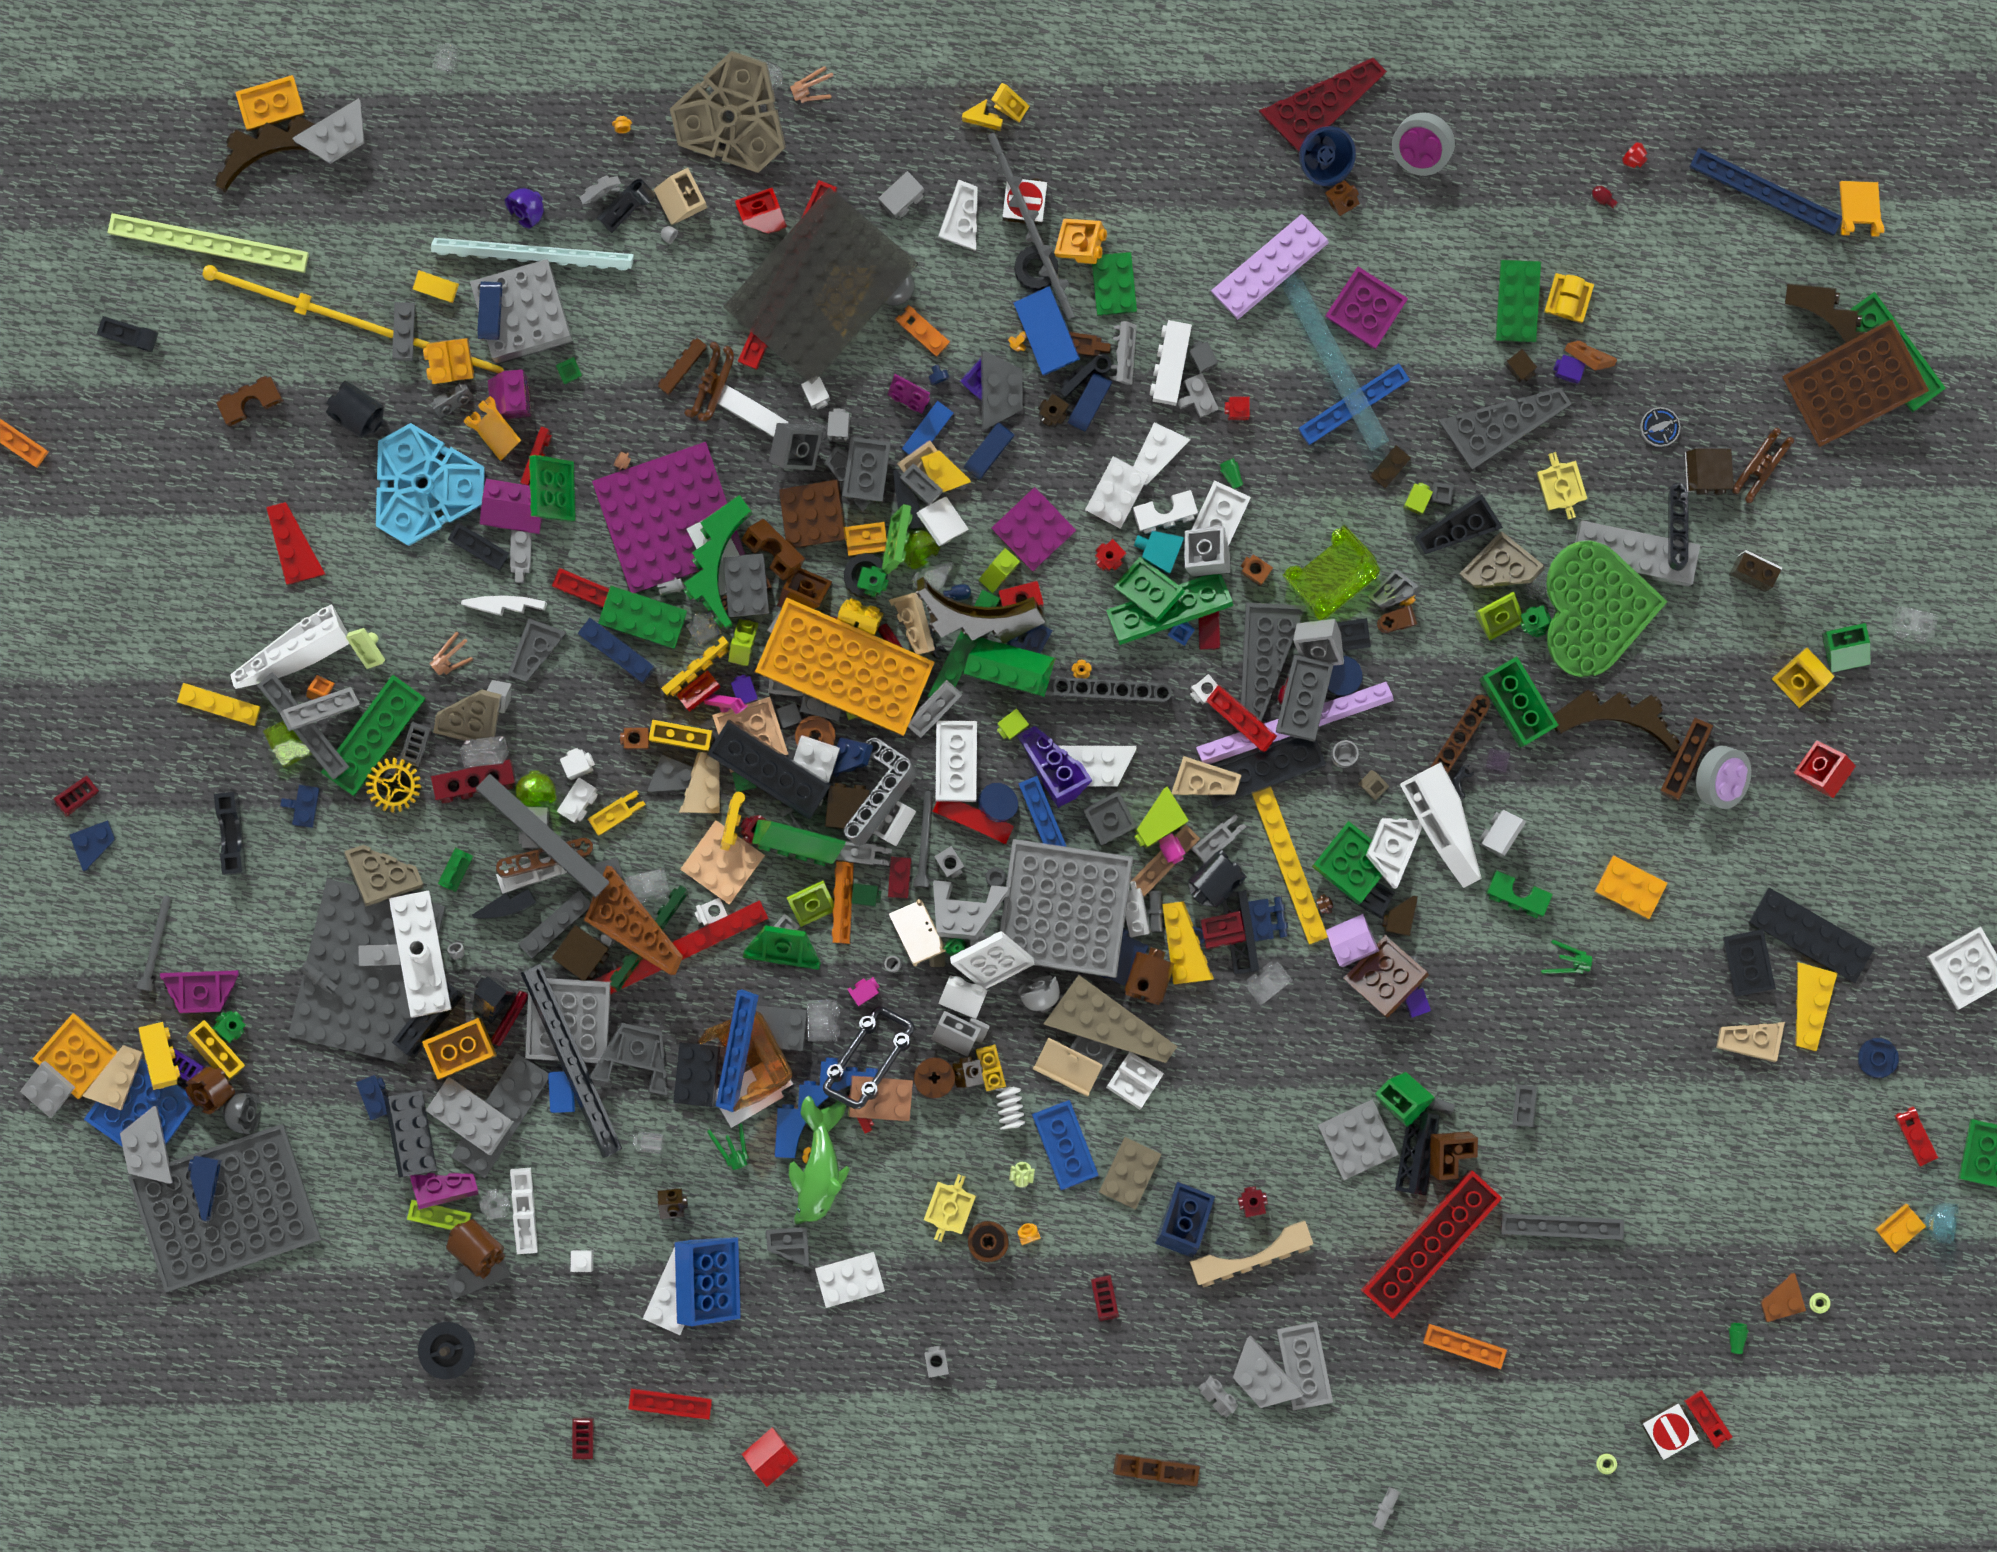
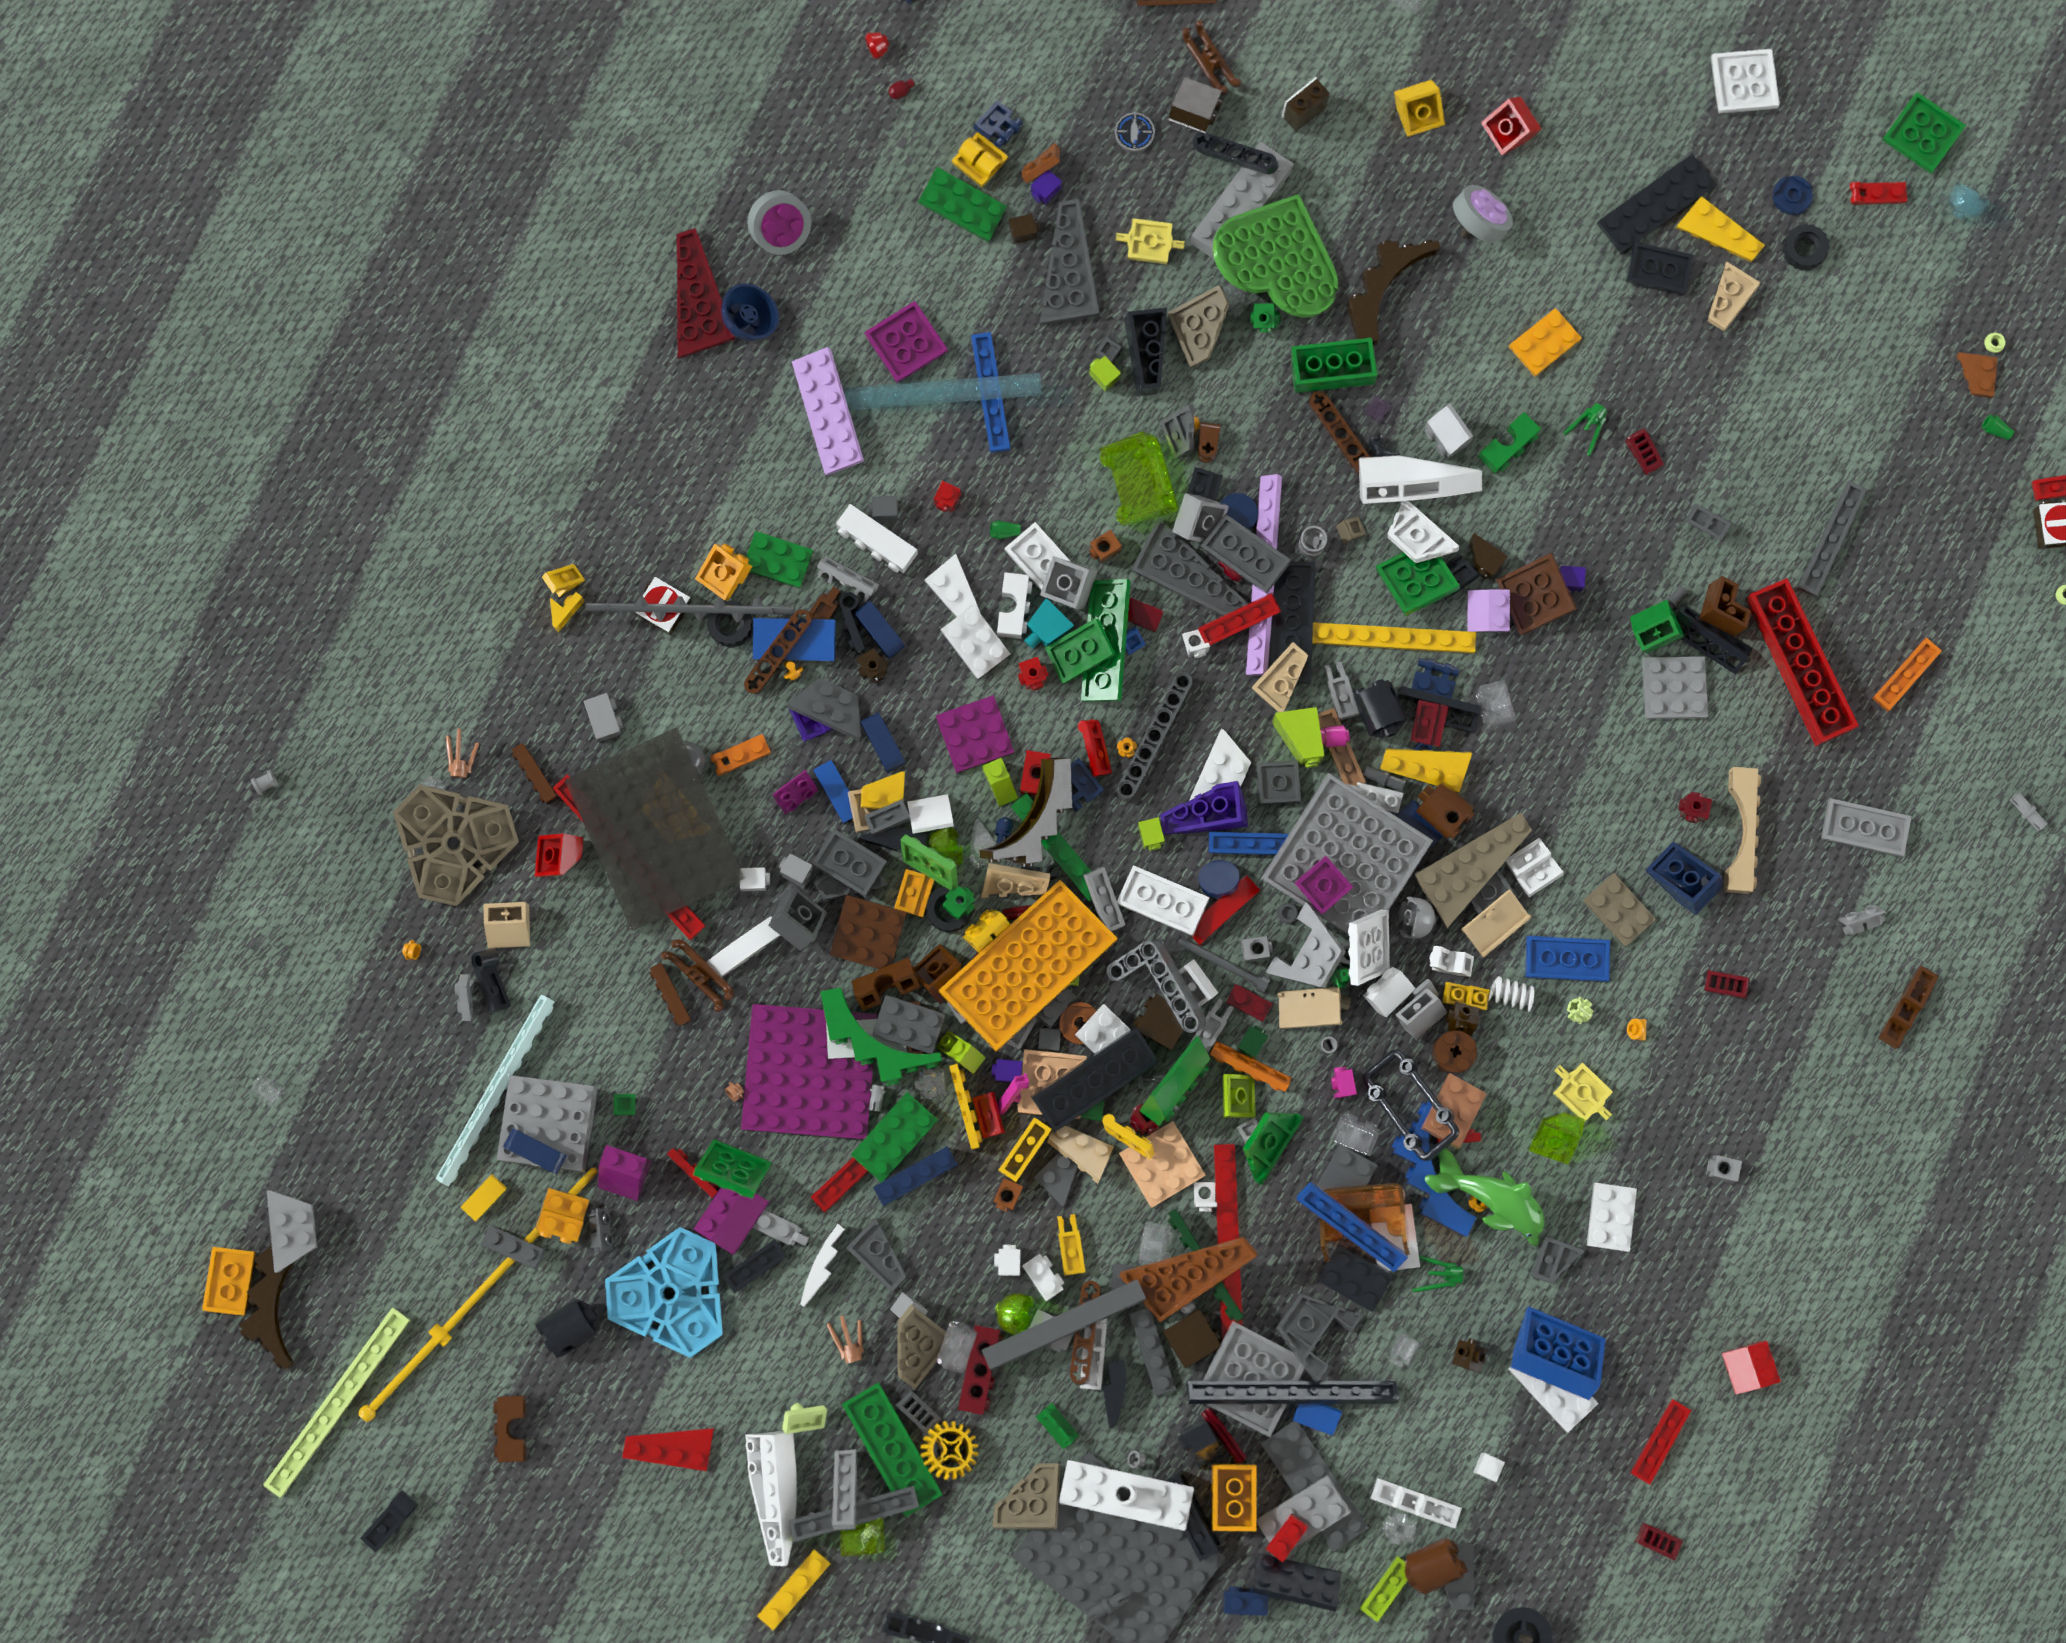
camera: 65 degrees left, 5 degrees down
(304, 806) = (930, 1547): dark blue plate -> none
(319, 688) = (822, 1482): orange slope -> none
(379, 955) = (1109, 1536): light grey tile -> none
(440, 1189) = (1362, 1575): magenta wing -> none
(444, 1109) = (1287, 1537): none -> red plate
(493, 429) = (648, 1201): light orange flag -> none
(526, 205) = (447, 1075): dark purple cylinder -> none
(669, 234) = (537, 952): light grey hinge -> none
(825, 158) = (534, 774): none -> reddish brown piece
(851, 756) = (1115, 996): dark blue wing -> none
(899, 1201) = (1558, 1137): none -> clear neon green slope
(938, 375) = (790, 758): dark blue tile -> none
(960, 219) = (652, 674): white wing -> none
(976, 1241) = (1638, 1077): reddish brown brick -> none
(1010, 666) = (1096, 810): green slope -> none
(1014, 1041) = (1451, 962): none -> white brick
(1030, 896) = (1323, 885): none -> magenta plate
(1037, 326) = (787, 646): none -> reddish brown beam
(1069, 640) = (1095, 747): none -> red plate
(1199, 396) = (918, 528): light grey plate -> none
(1263, 1377) = (1862, 870): light grey wing -> none
(1325, 904) = (1444, 621): reddish brown plate -> none
(1342, 197) = (794, 317): reddish brown brick -> none
(1390, 467) = (1063, 385): dark brown plate -> none
(1500, 616) = (1245, 347): lime slope -> none
(1583, 1011) = (1630, 441): none -> dark red slope
(1611, 293) = (993, 120): none -> dark blue plate
(1687, 759) = (1451, 240): reddish brown brick -> none
(1845, 1082) = (1813, 233): none -> black tyre
(1847, 647) = (1409, 57): green slope -> none
(1900, 1228) = (1955, 243): light orange plate -> none

